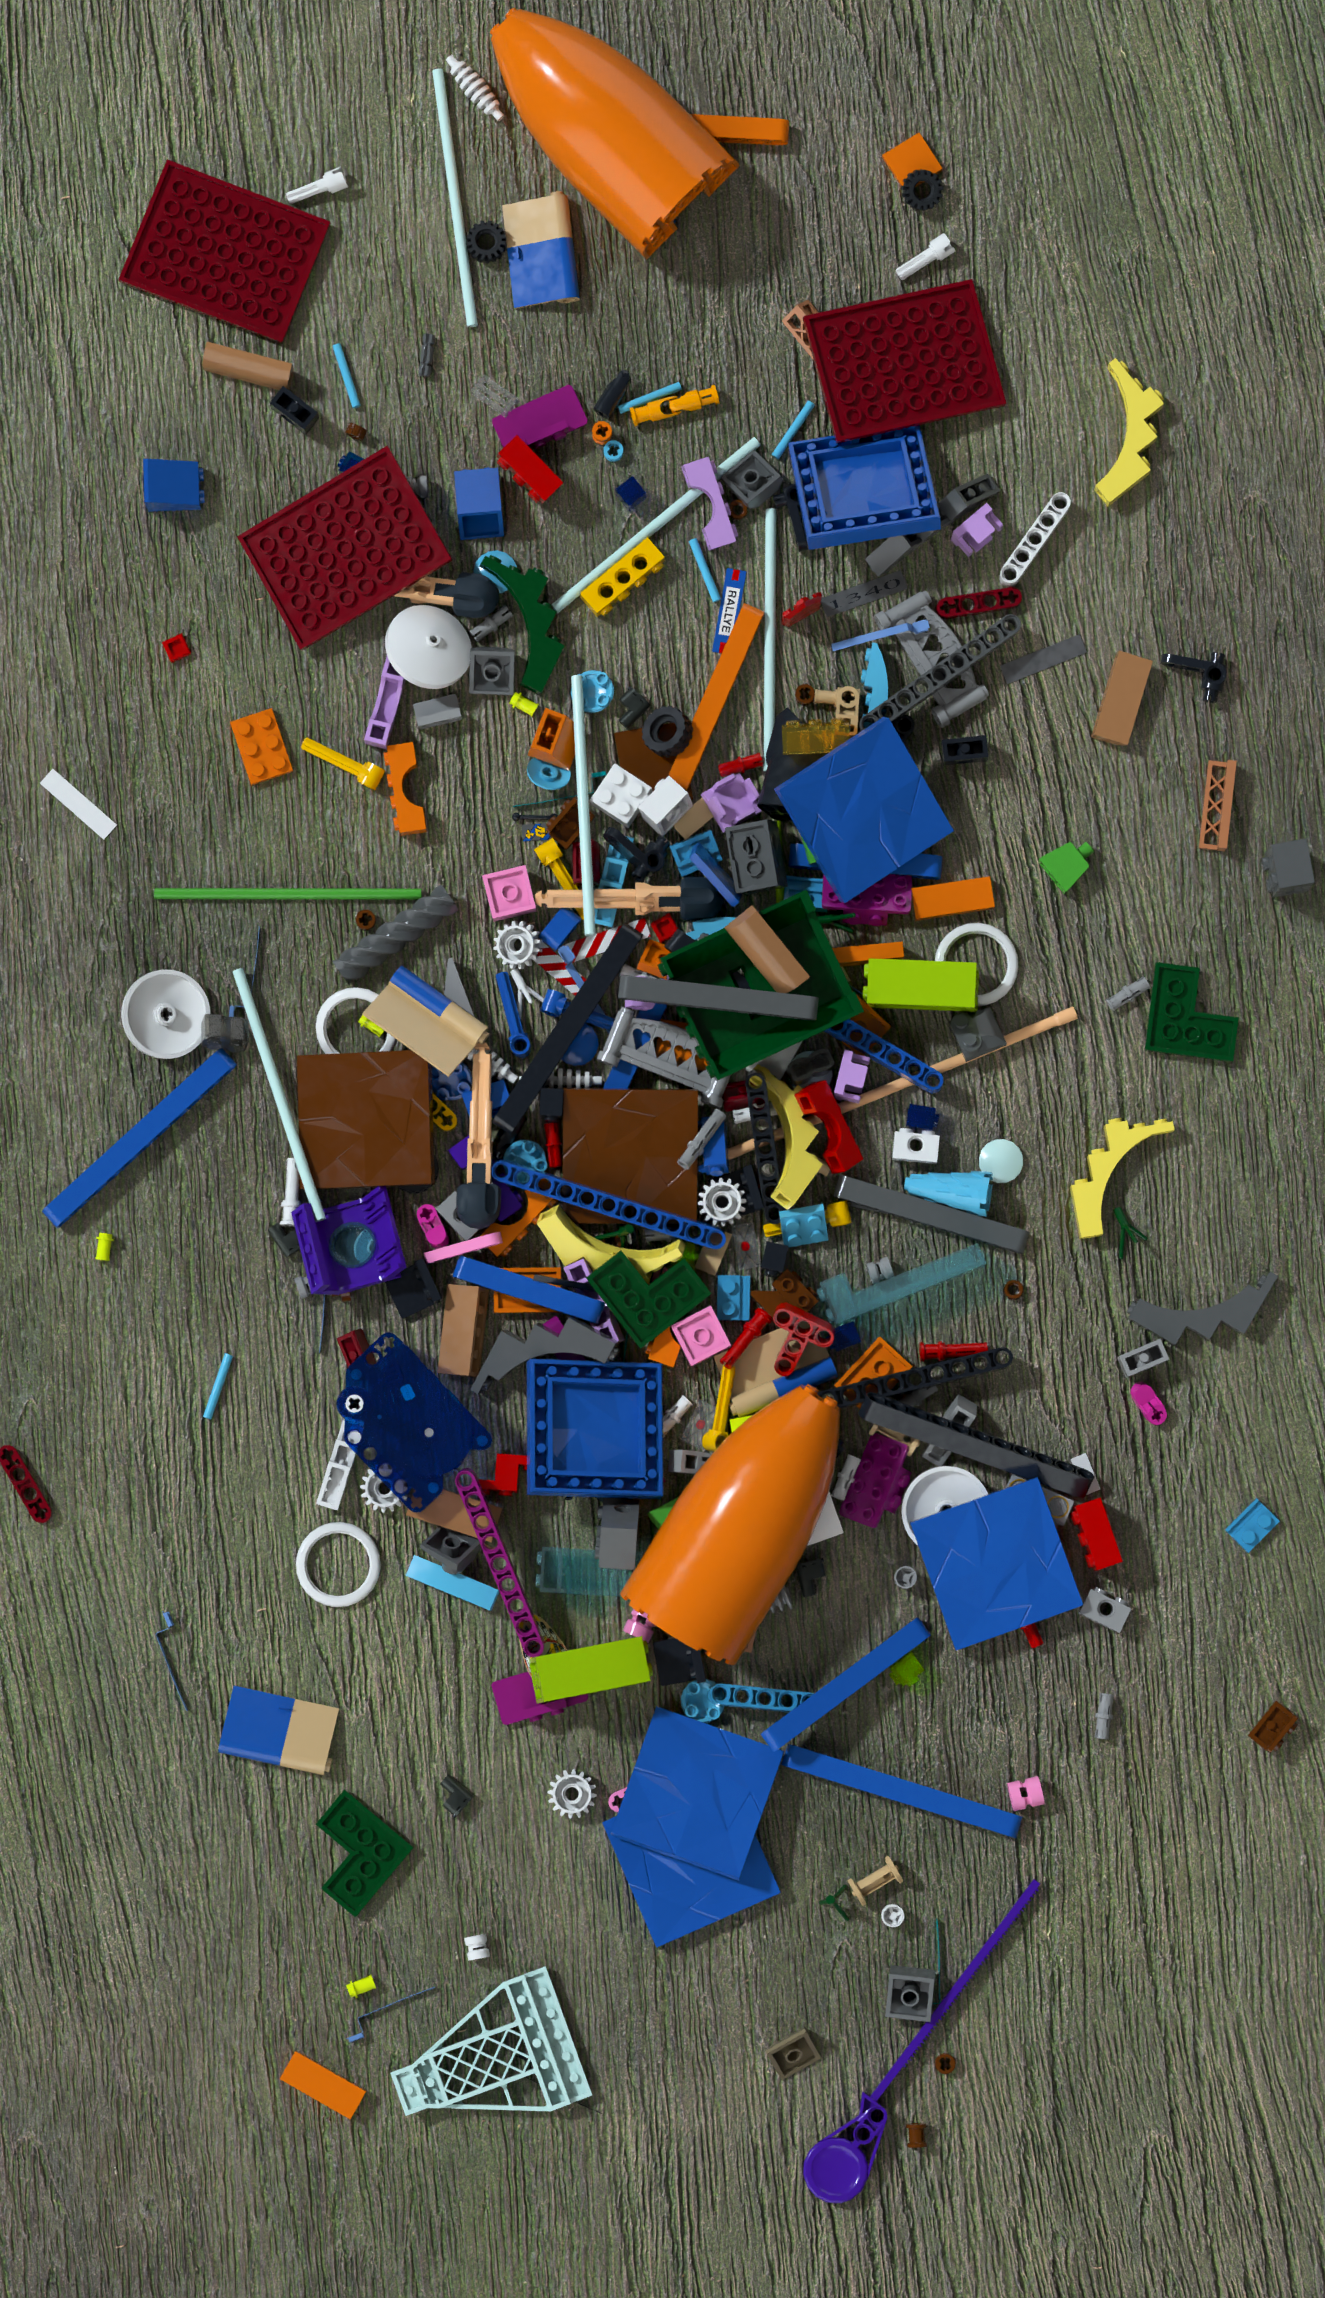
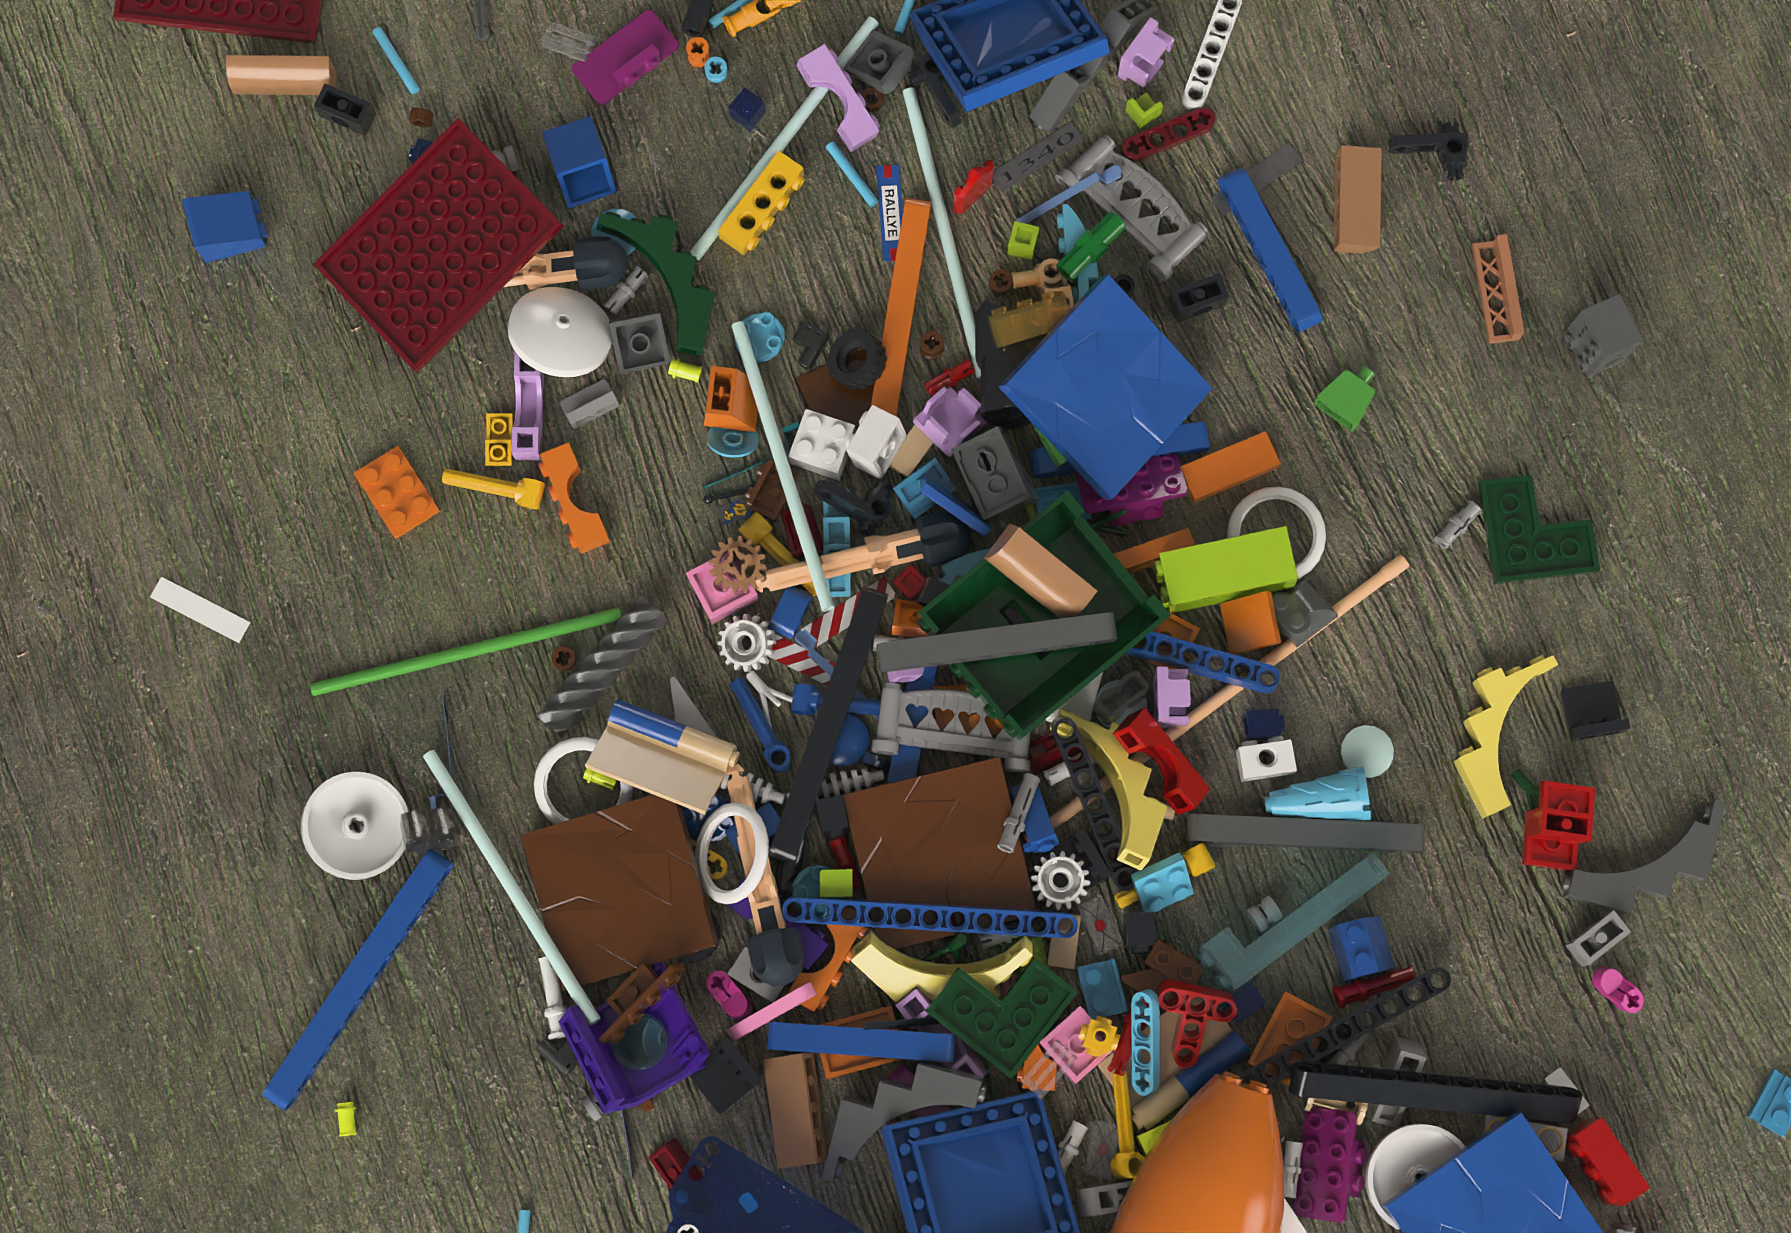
camera: 15 degrees left, 5 degrees down
(176, 648) = (273, 406): red tile -> none
(356, 723) = (499, 439): none -> yellow slope
(359, 1206) = (636, 993): none -> reddish brown bracket
(484, 1124) = (760, 858): none -> white wedge
(515, 880) = (748, 562): none -> medium nougat gear
(528, 470) = (626, 108): red brick -> none
(540, 1158) = (836, 883): none -> lime panel
(598, 1069) = (872, 760): none -> dark blue tile
(657, 1359) = (1034, 1086): none -> clear tile
(714, 1341) = (1089, 1041): none -> yellow brick
(728, 729) = (931, 336): none -> reddish brown bush
(758, 1349) = (1141, 1041): none -> medium azure beam
(832, 664) = (1023, 240): none -> lime panel
(885, 685) = (1091, 246): none -> green piece
(933, 1032) = (1250, 623): none -> orange tile
(947, 669) = (1155, 212): dark grey beam -> none
(951, 1317) = (1360, 948): none -> blue slope
(964, 576) = (1143, 110): none -> lime panel
(1016, 1283) = (1429, 891): reddish brown axle -> none
(1036, 723) = (1270, 250): none -> blue beam
(1136, 1260) = (1558, 825): none -> red bracket
(1194, 1174) = (1592, 711): none -> black bracket

